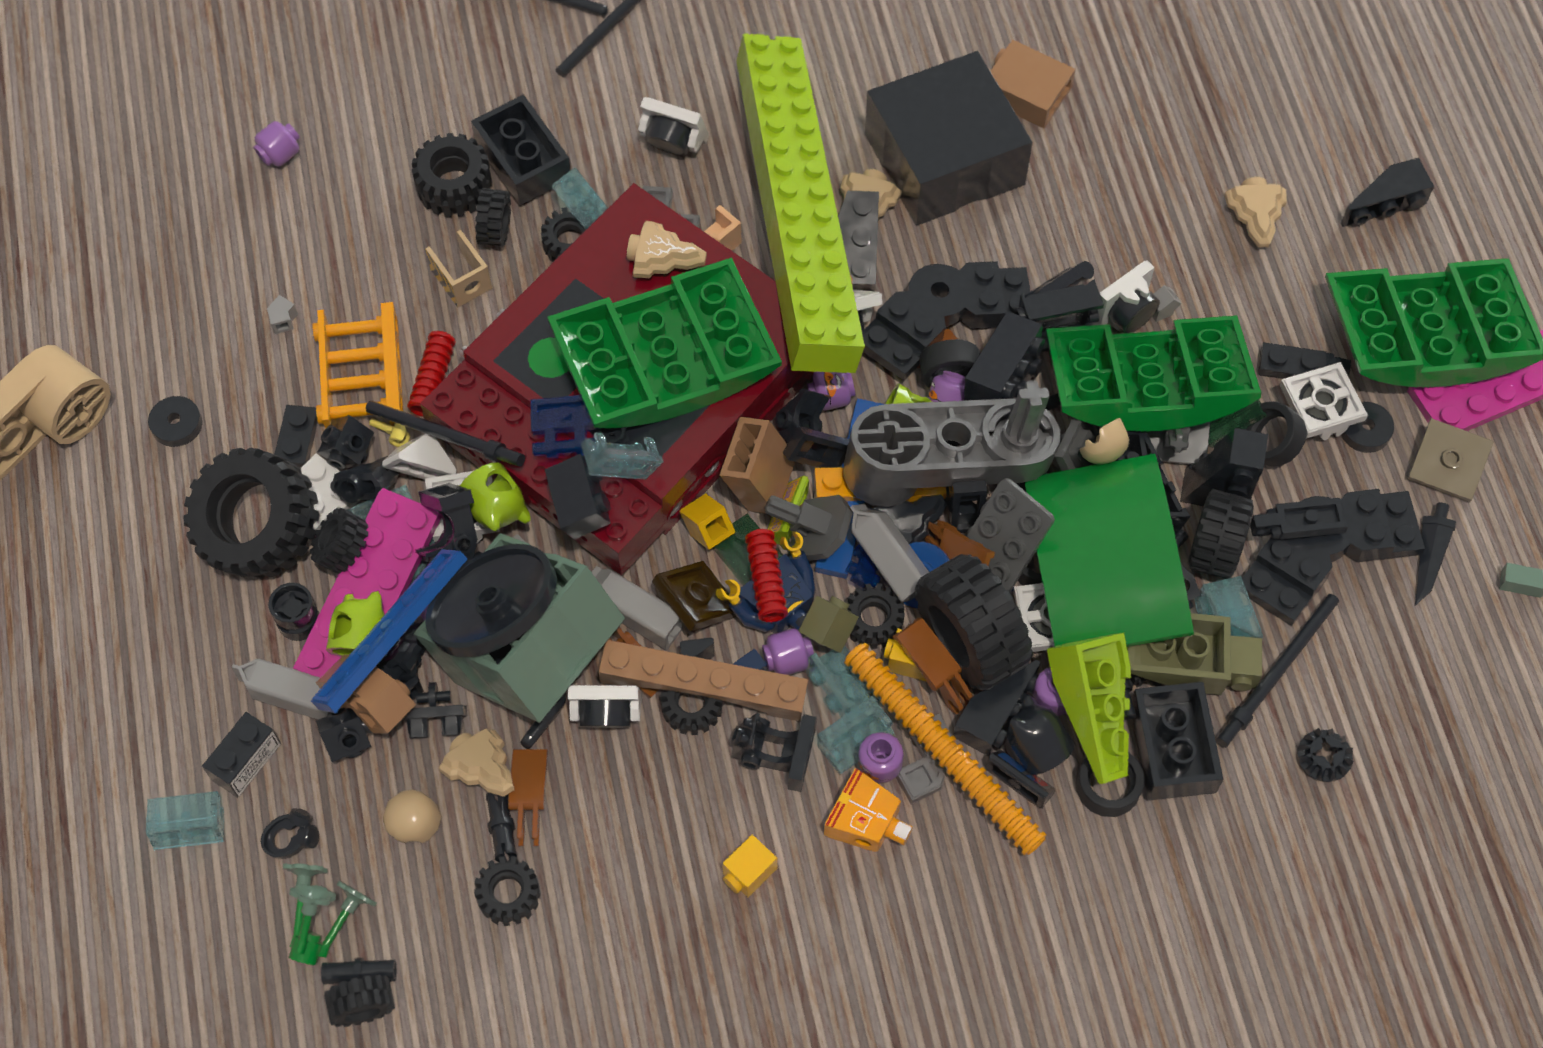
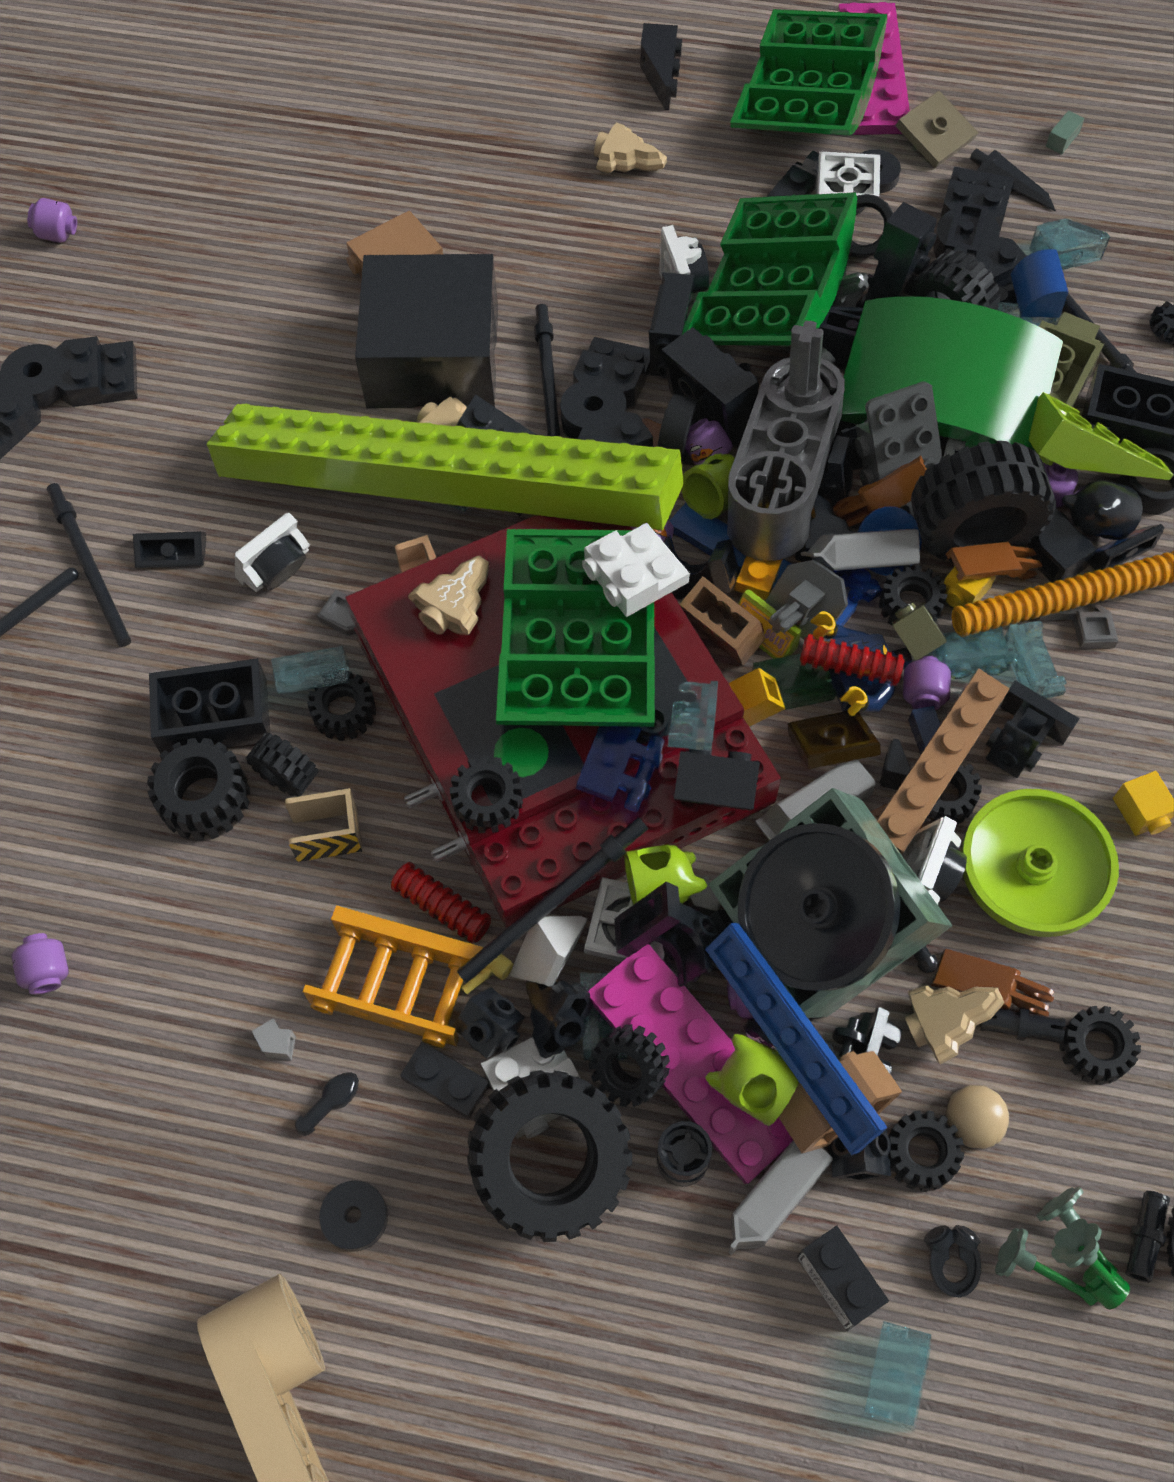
camera: 65 degrees left, 0 degrees up
(258, 372) = (335, 1095): none -> black piece
(351, 770) = (944, 1136): none -> black tyre
(497, 329) = (482, 773): none -> black tyre
(649, 790) = (1039, 862): none -> lime dish
(657, 62) = (169, 549): none -> black slope
(729, 356) = (634, 568): none -> white plate
(866, 815) = (1122, 683): light orange torso -> none
(880, 757) = (1072, 645): medium lavender head -> none
(1008, 229) = (544, 336): none -> black bar
(1066, 278) = (633, 316): black plate -> none
(1109, 444) = (843, 329): tan hair -> none
(1275, 604) = (1040, 285): none -> blue brick
(1363, 622) = (1072, 240): none -> clear light blue slope

